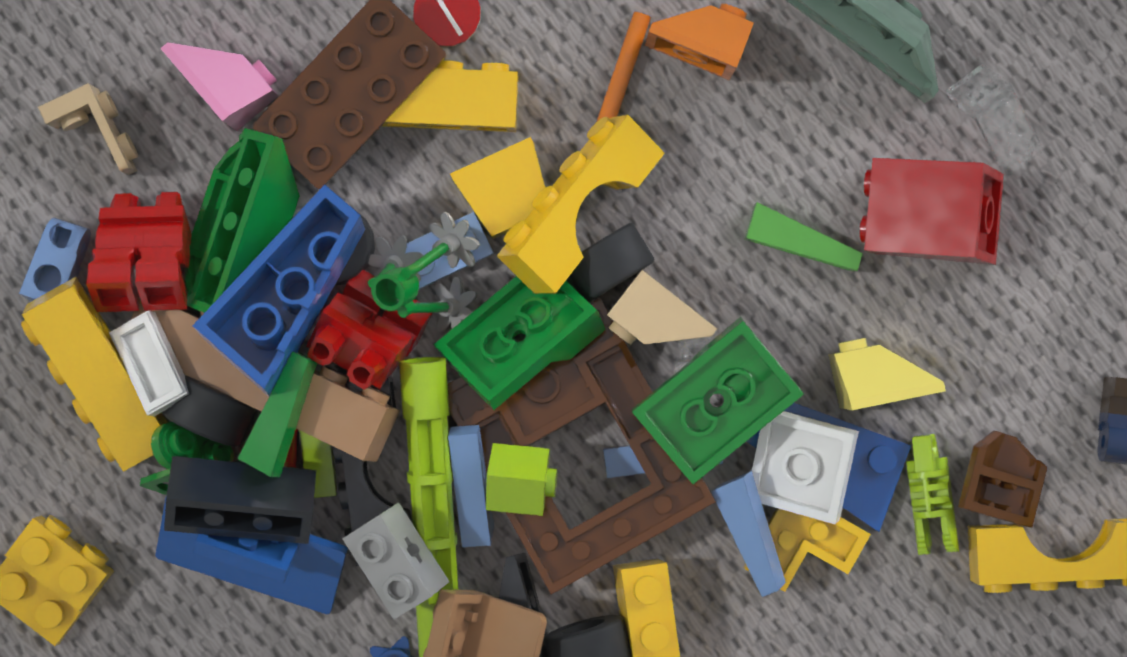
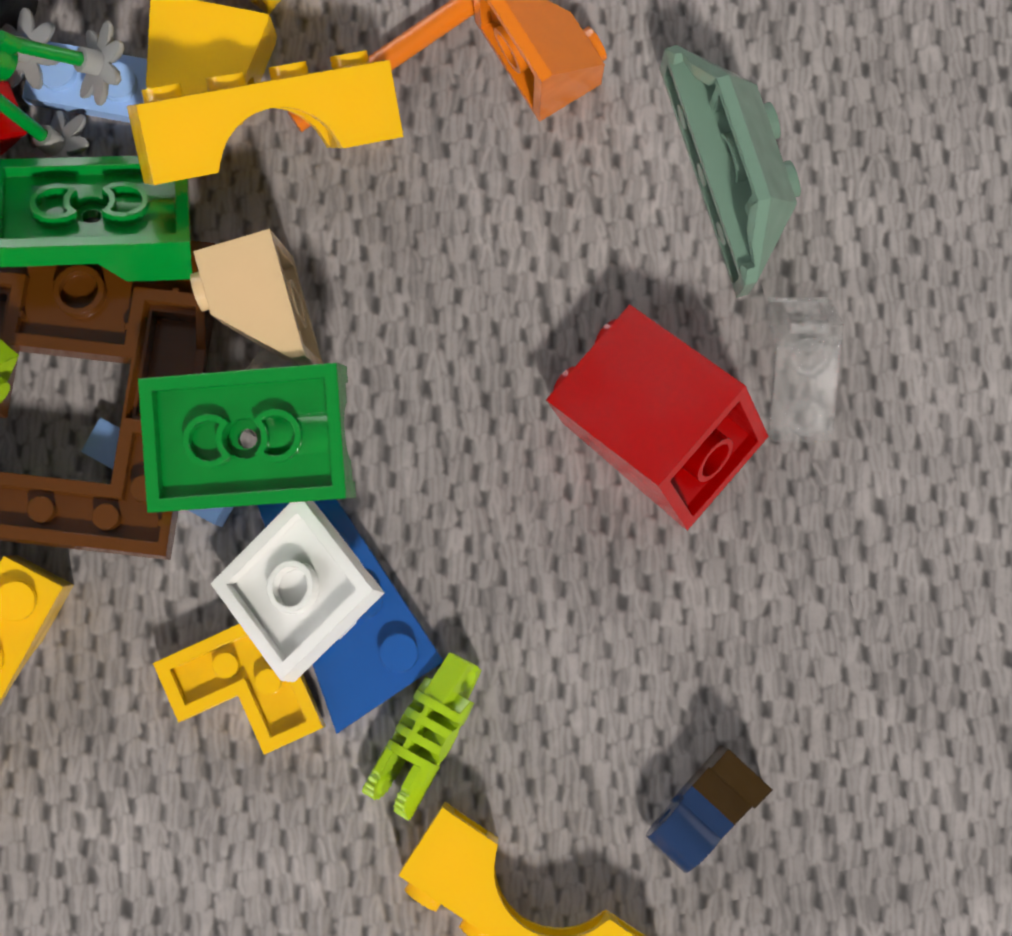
camera: 40 degrees right, 5 degrees down
(611, 262) = (252, 201): black tyre -> none
(747, 522) = (184, 623): medium blue piece -> none
(785, 234) = (477, 329): bright green piece -> none
(877, 376) = (456, 549): light yellow slope -> none
(1003, 480) = (517, 776): reddish brown slope -> none

